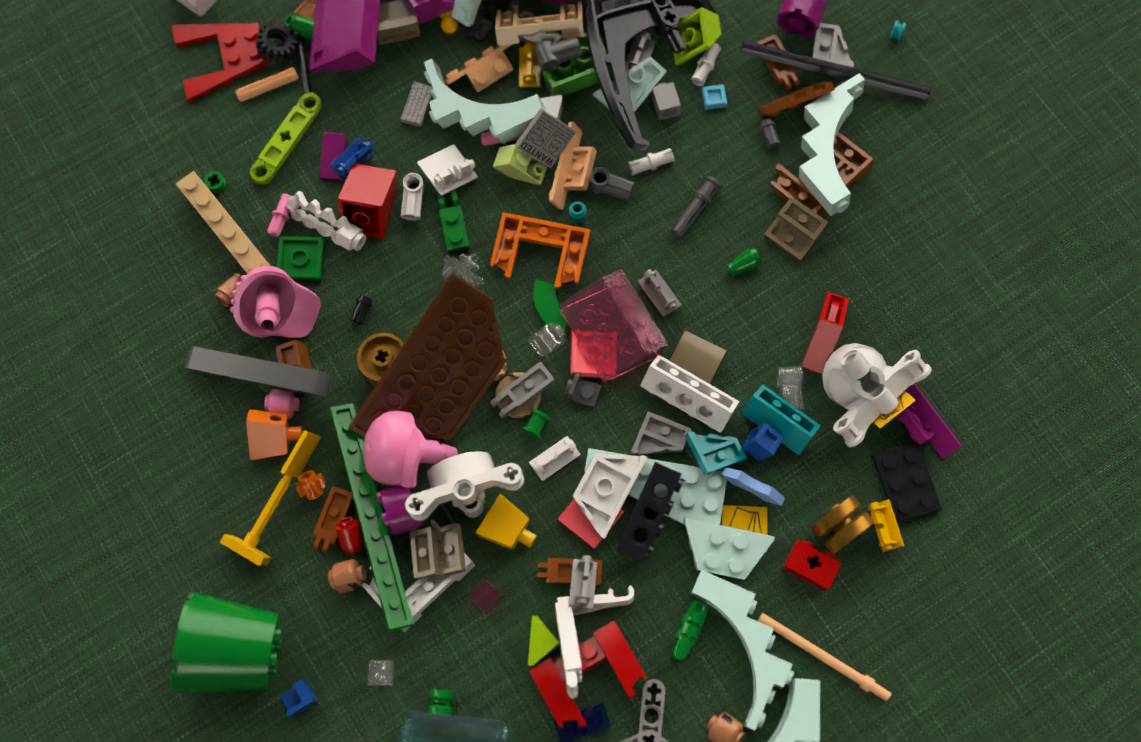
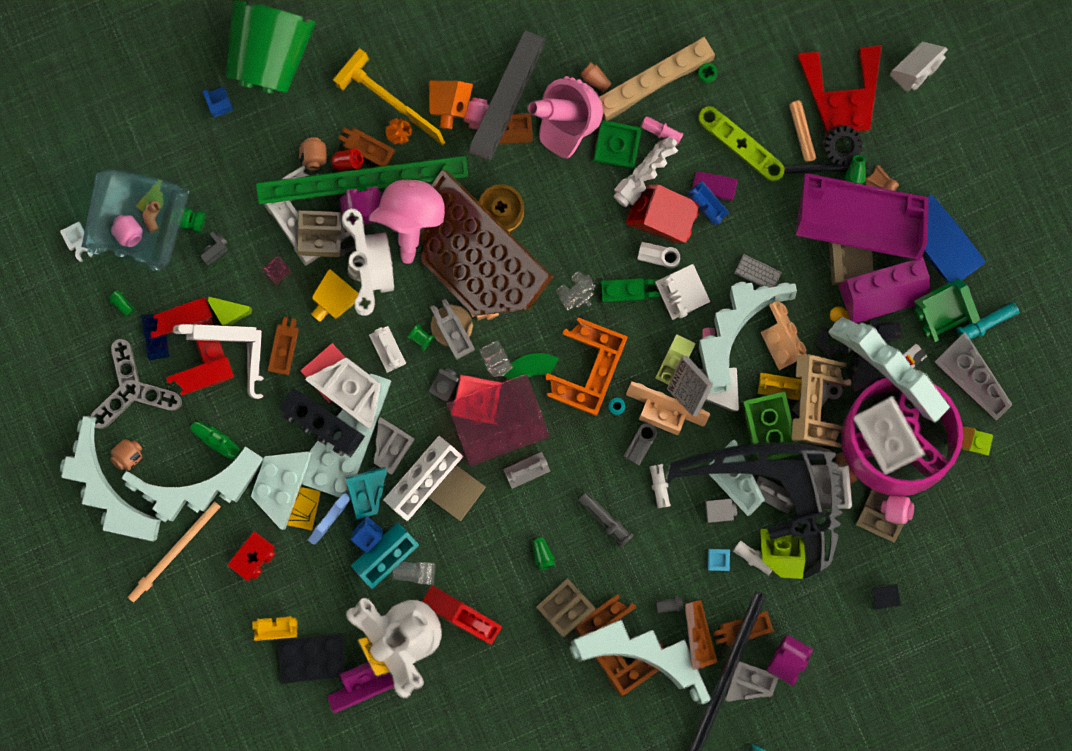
camera: 90 degrees right, 10 degrees up
(361, 309) = (557, 194): black pin -> none
(381, 673) = (227, 173): clear tile -> none
(475, 672) = (215, 251): none -> dark grey bracket
(552, 54) = (775, 405): dark grey piece -> none
(583, 583) = (268, 354): light grey hinge -> none
(842, 524) = (283, 587): pearl gold wheel -> none

